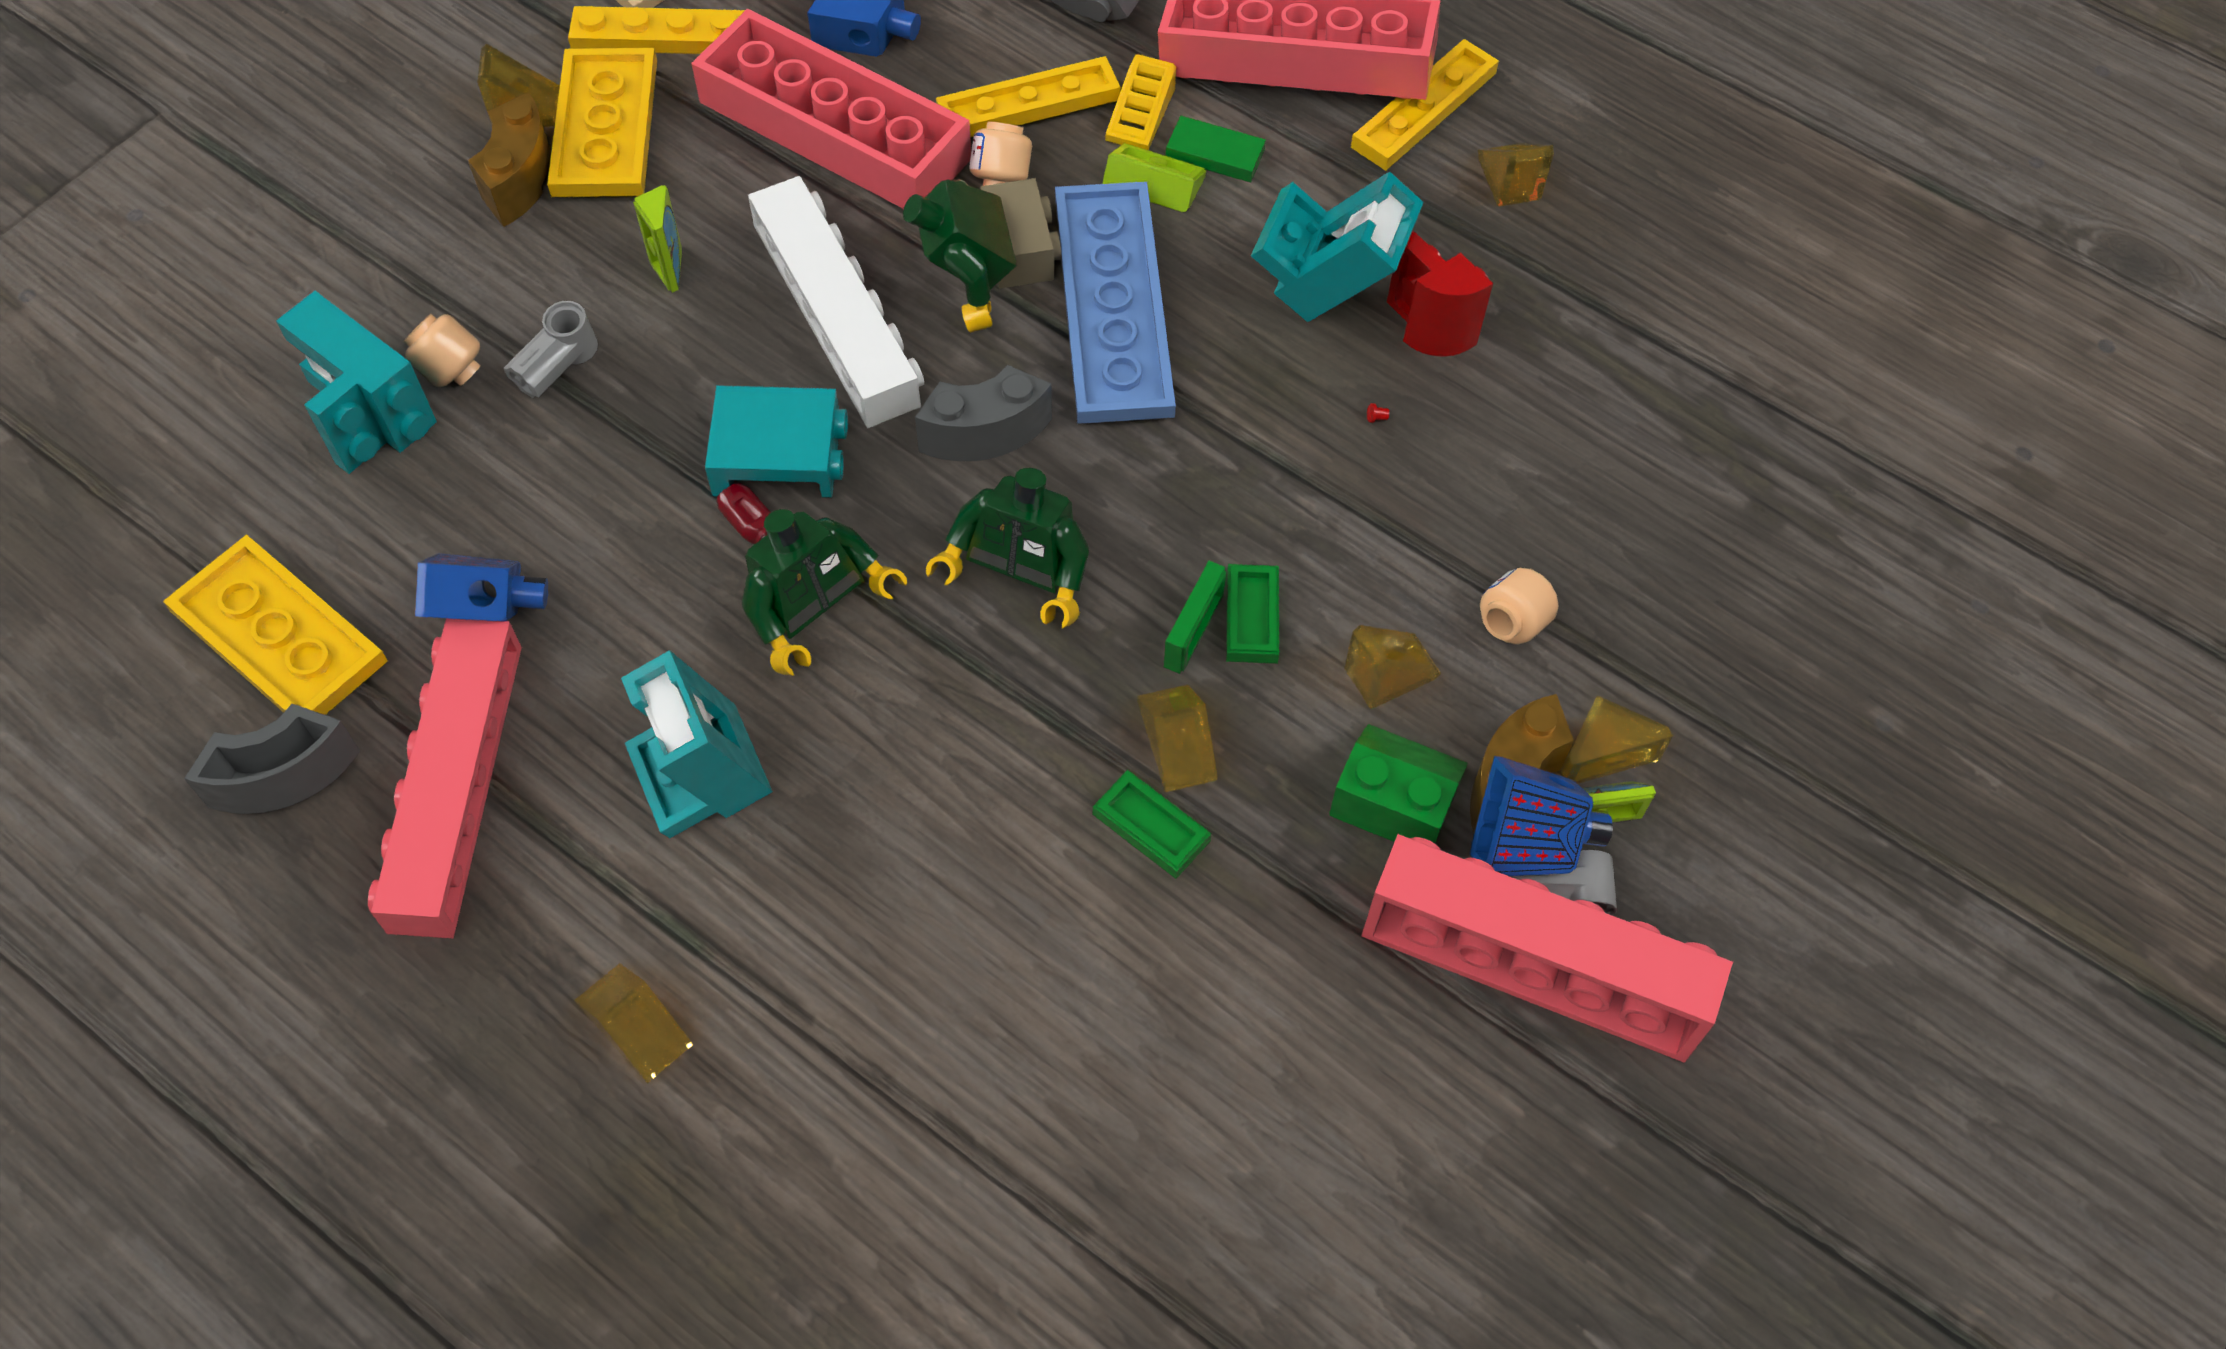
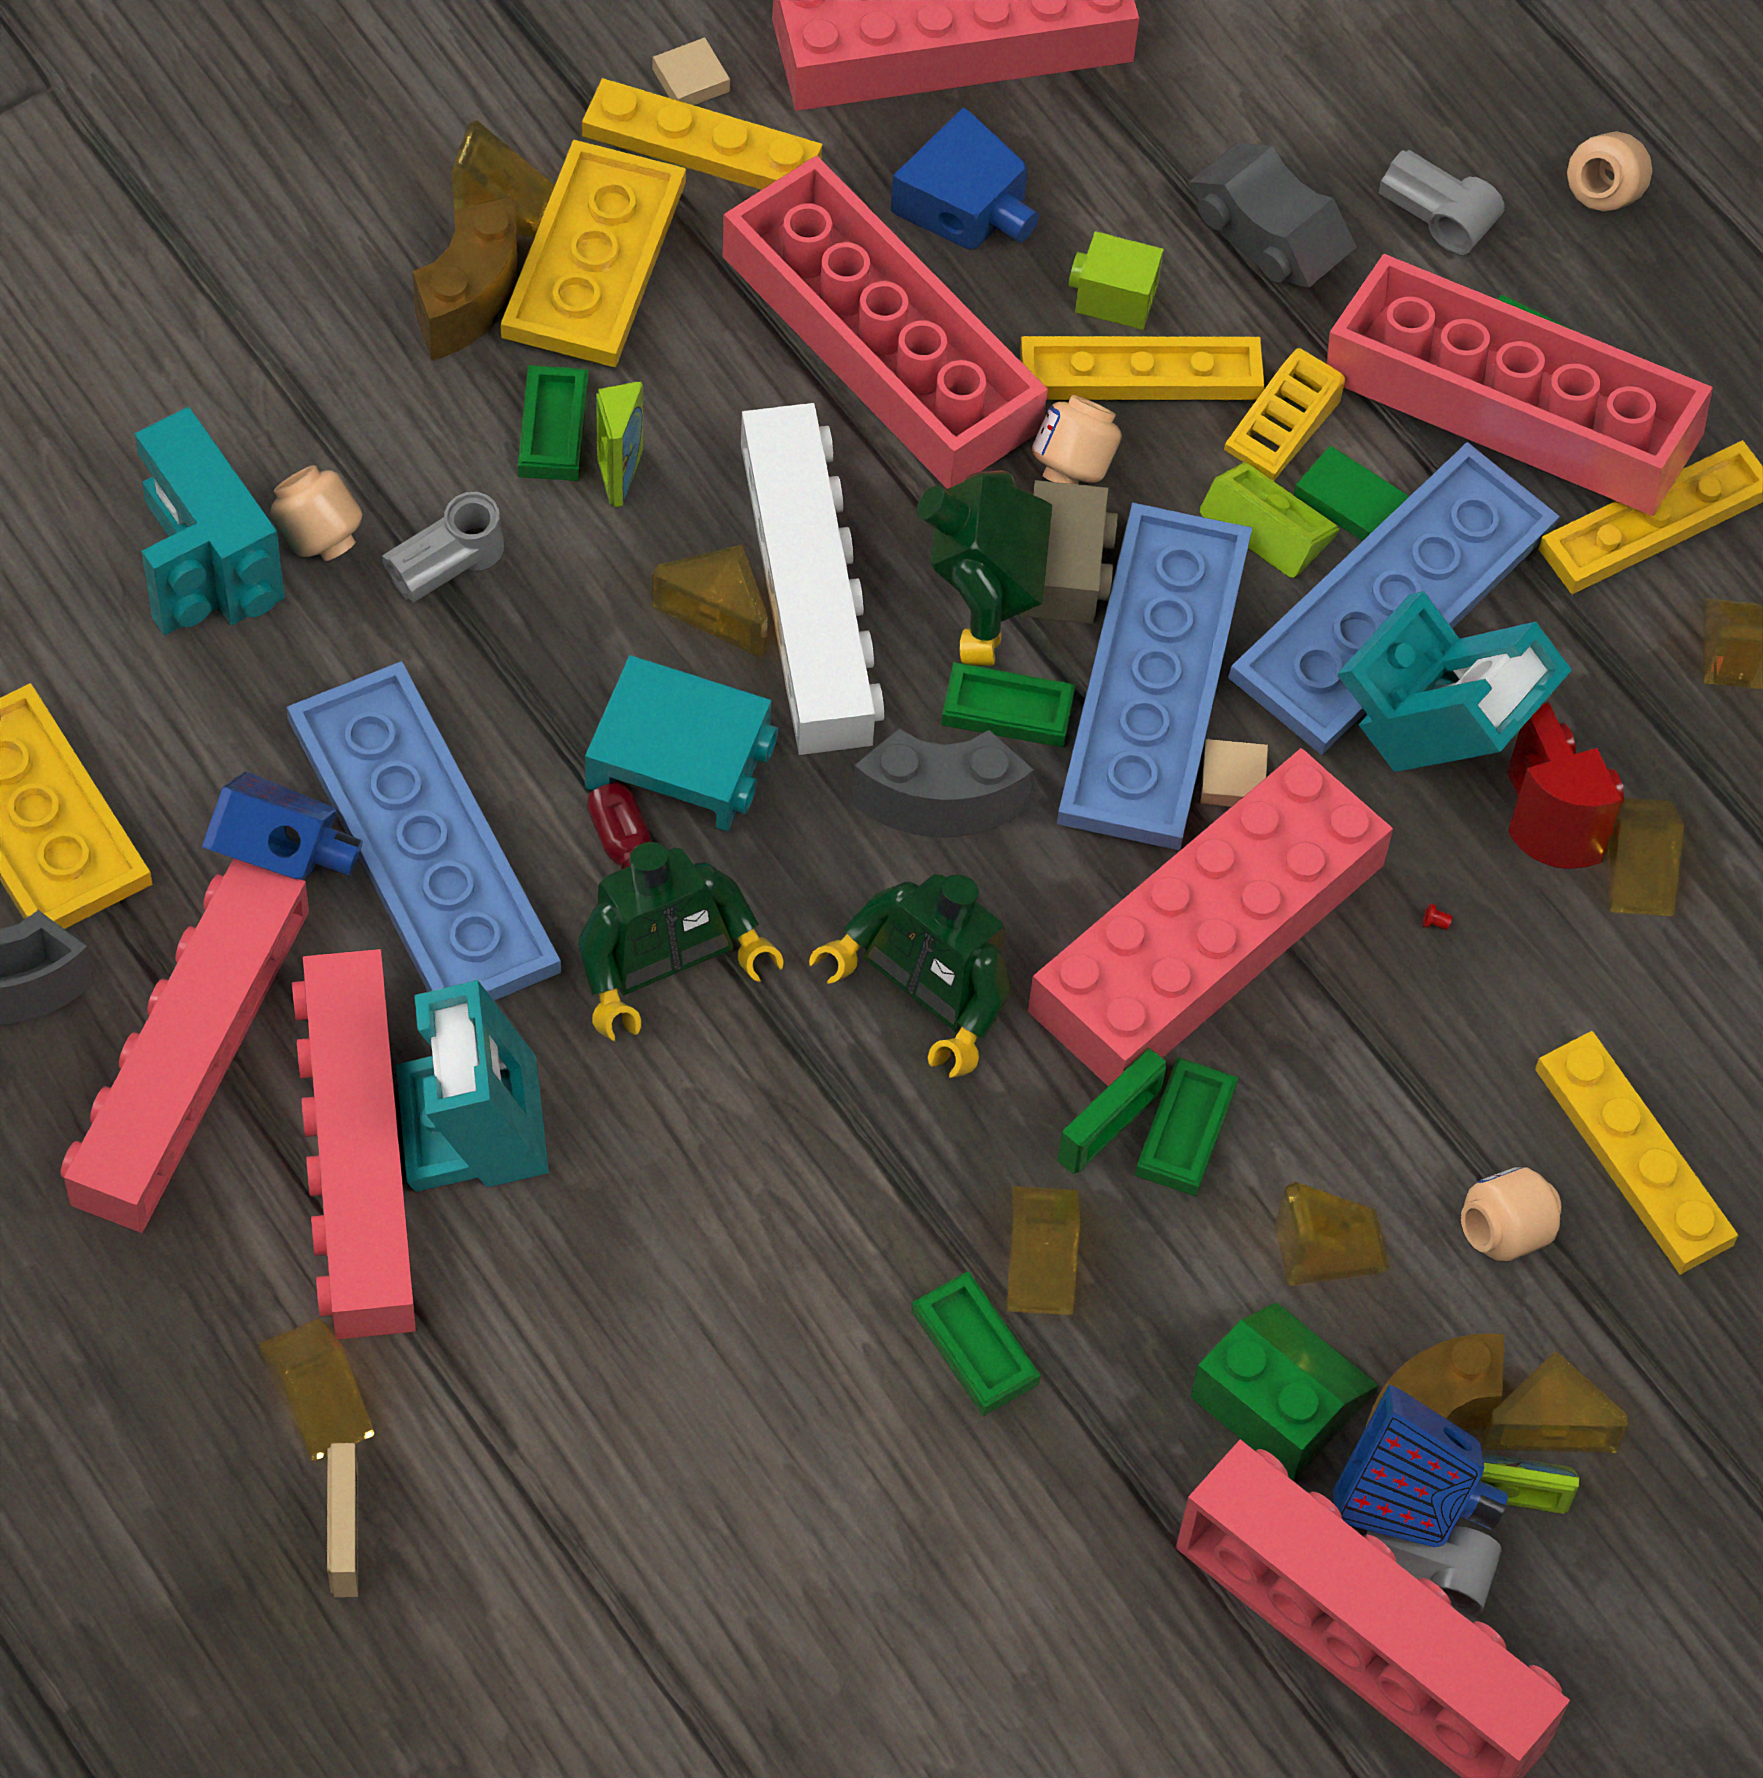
camera: 15 degrees right, 0 degrees up
(594, 562) = (422, 835): none -> medium blue plate
(608, 245) = (553, 423): none -> green tile
(611, 816) = (357, 1145): none -> coral brick
(687, 1125) = (342, 1520): none -> tan tile
(768, 331) = (715, 596): none -> clear yellow slope
(990, 45) = (1116, 279): none -> lime brick
(1024, 347) = (1008, 704): none -> green tile
(1194, 354) = (1231, 771): none -> tan tile
(1215, 459) = (1210, 918): none -> coral brick
(1288, 144) = (1446, 540): none -> medium blue plate
(1512, 332) = (1645, 857): none -> clear yellow slope
(1586, 537) = (1636, 1152): none -> yellow plate

